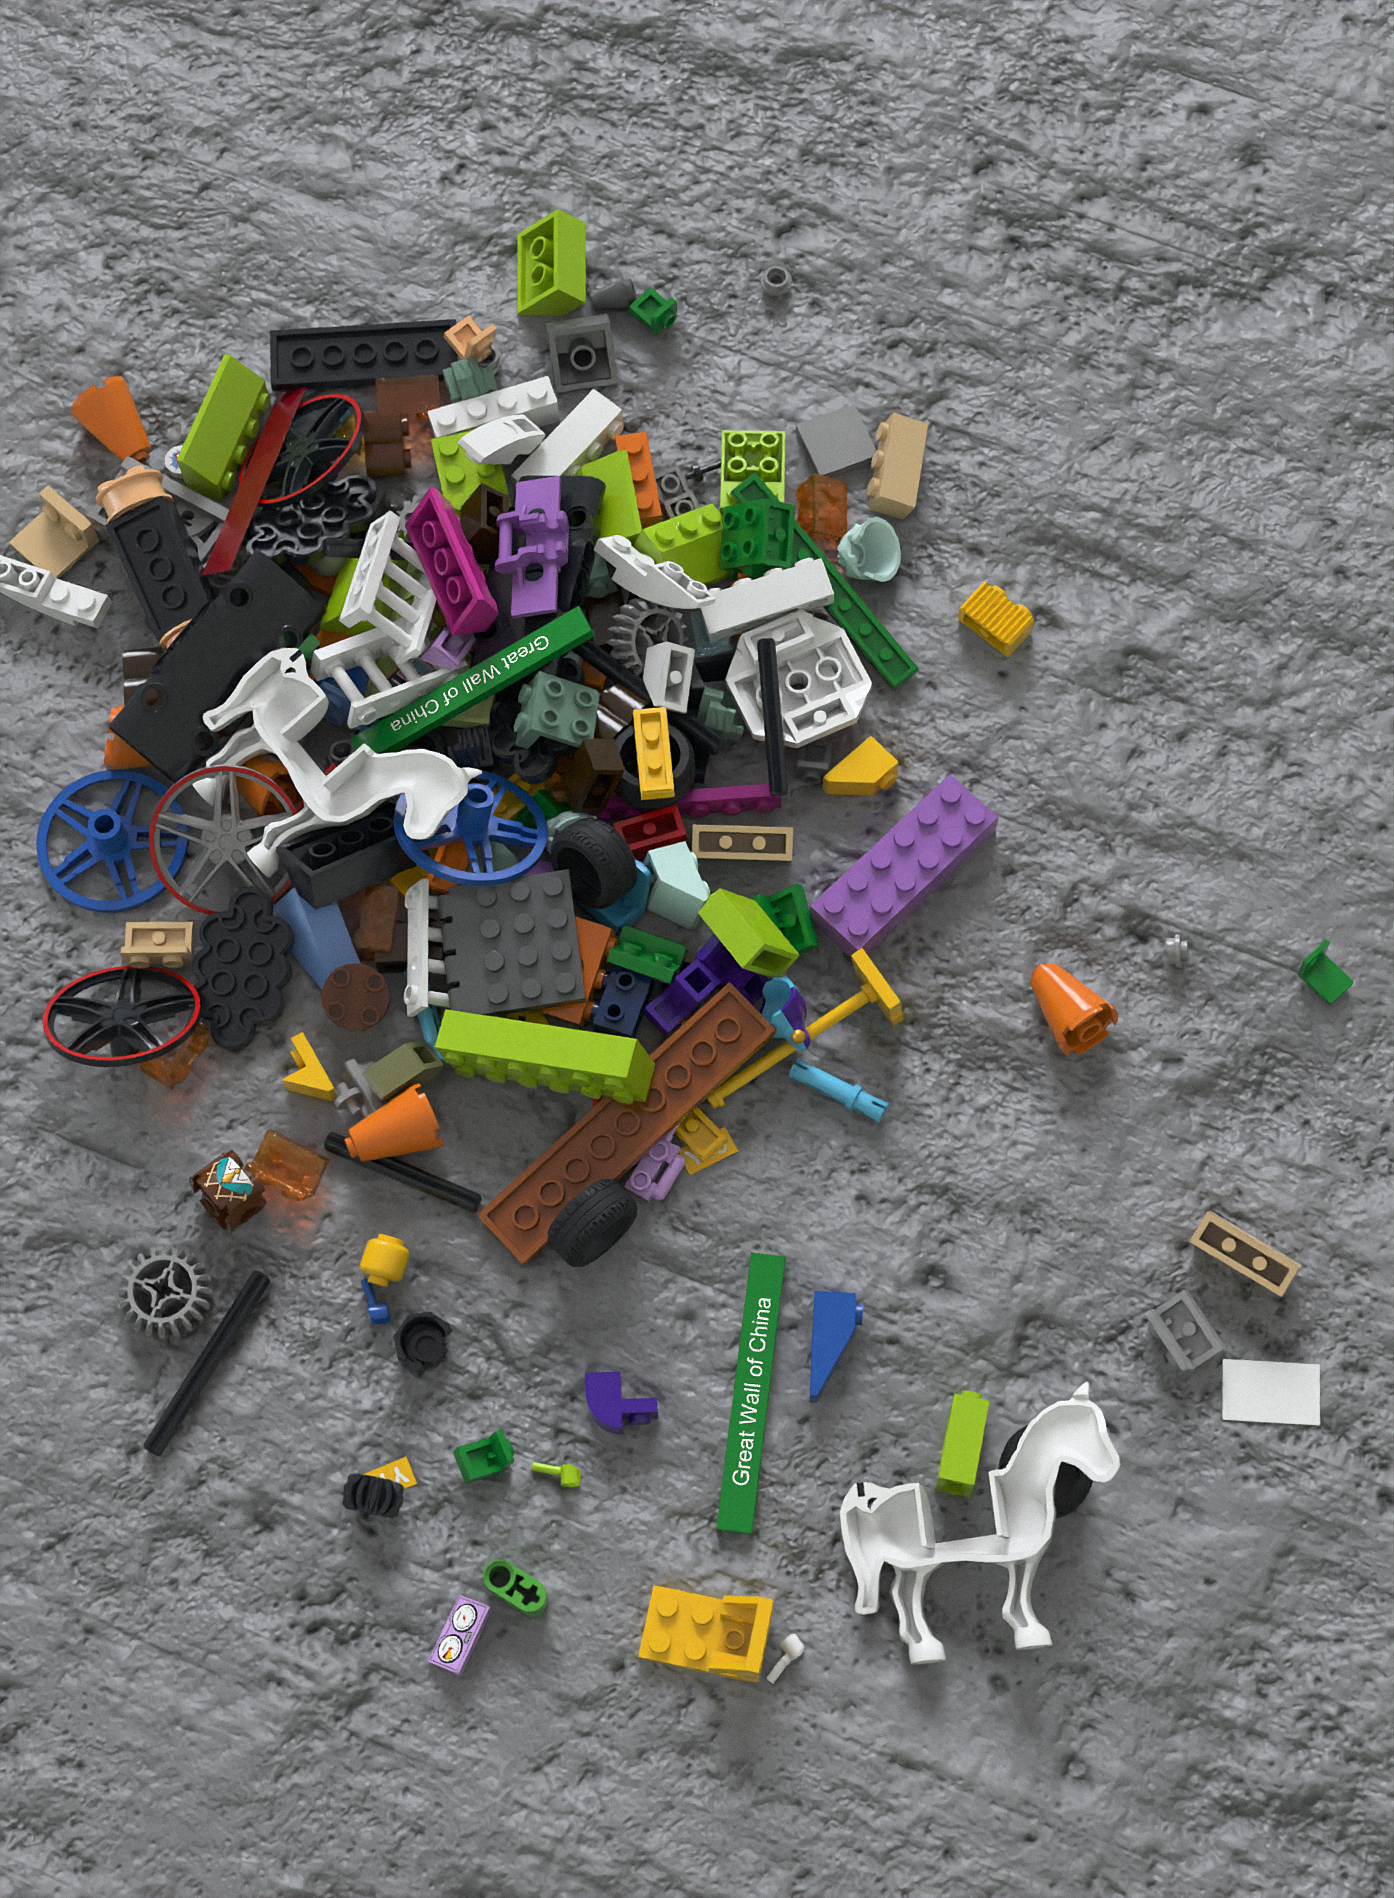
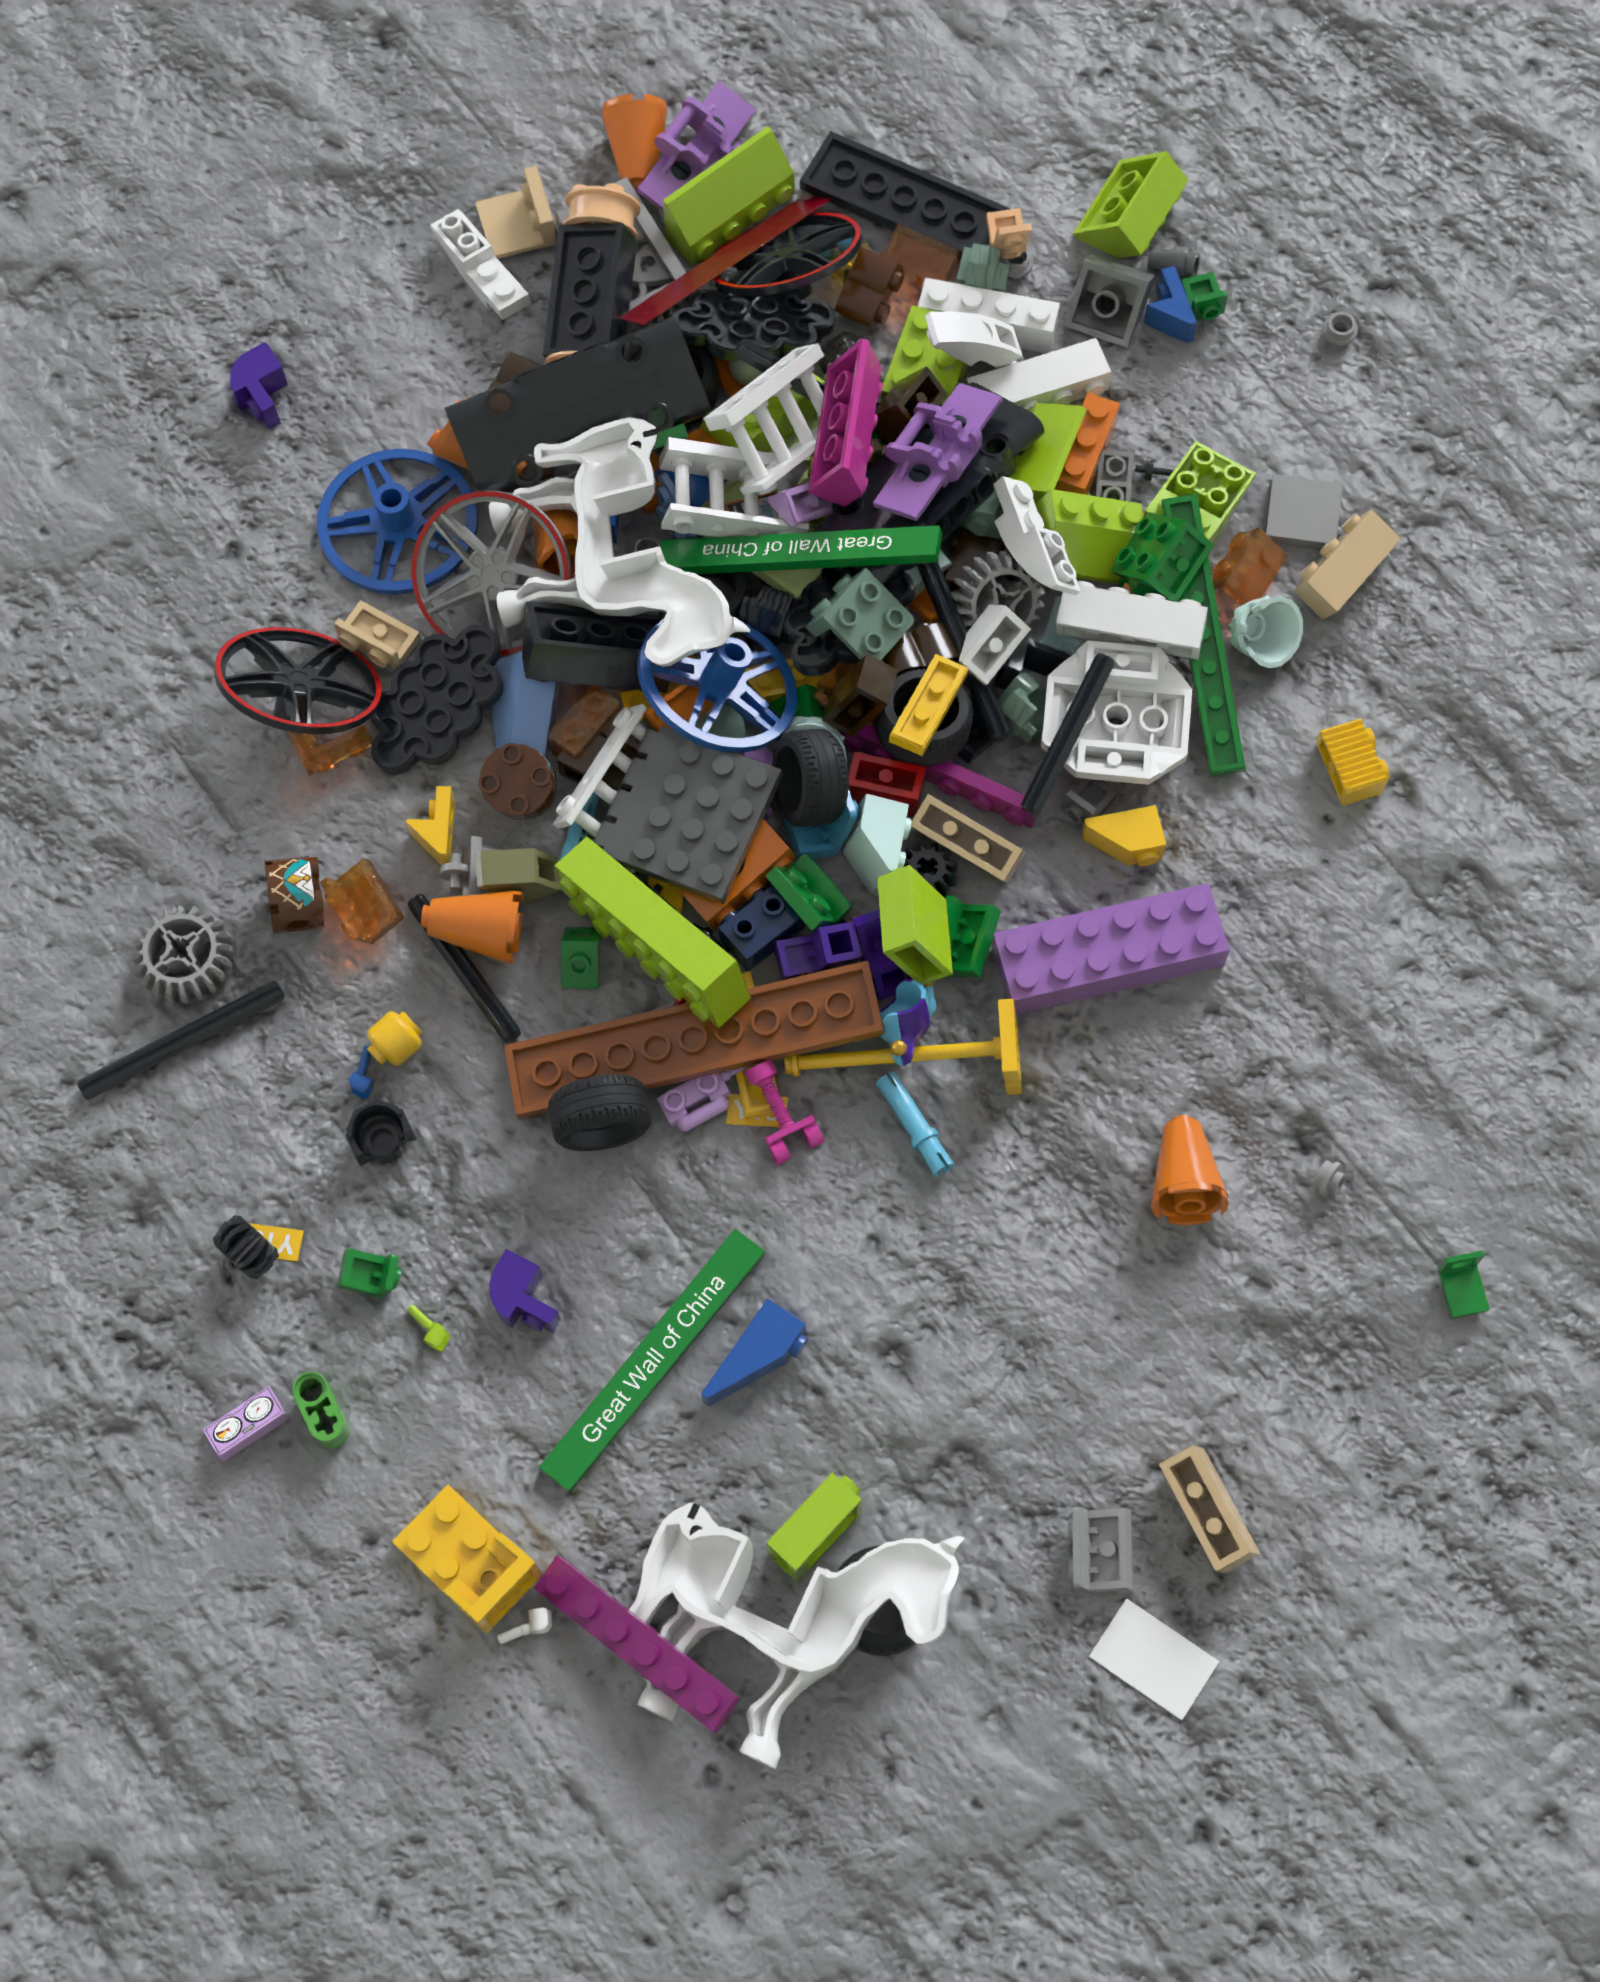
camera: 30 degrees right, 0 degrees up
(170, 422) = (716, 126): none -> medium lavender piece
(492, 1110) = (580, 958): none -> green bracket
(638, 334) = (1172, 310): none -> blue slope
(700, 1120) = (762, 1076): none -> dark pink bar
(728, 876) = (930, 860): none -> black gear
(882, 1616) = (637, 1644): none -> magenta plate

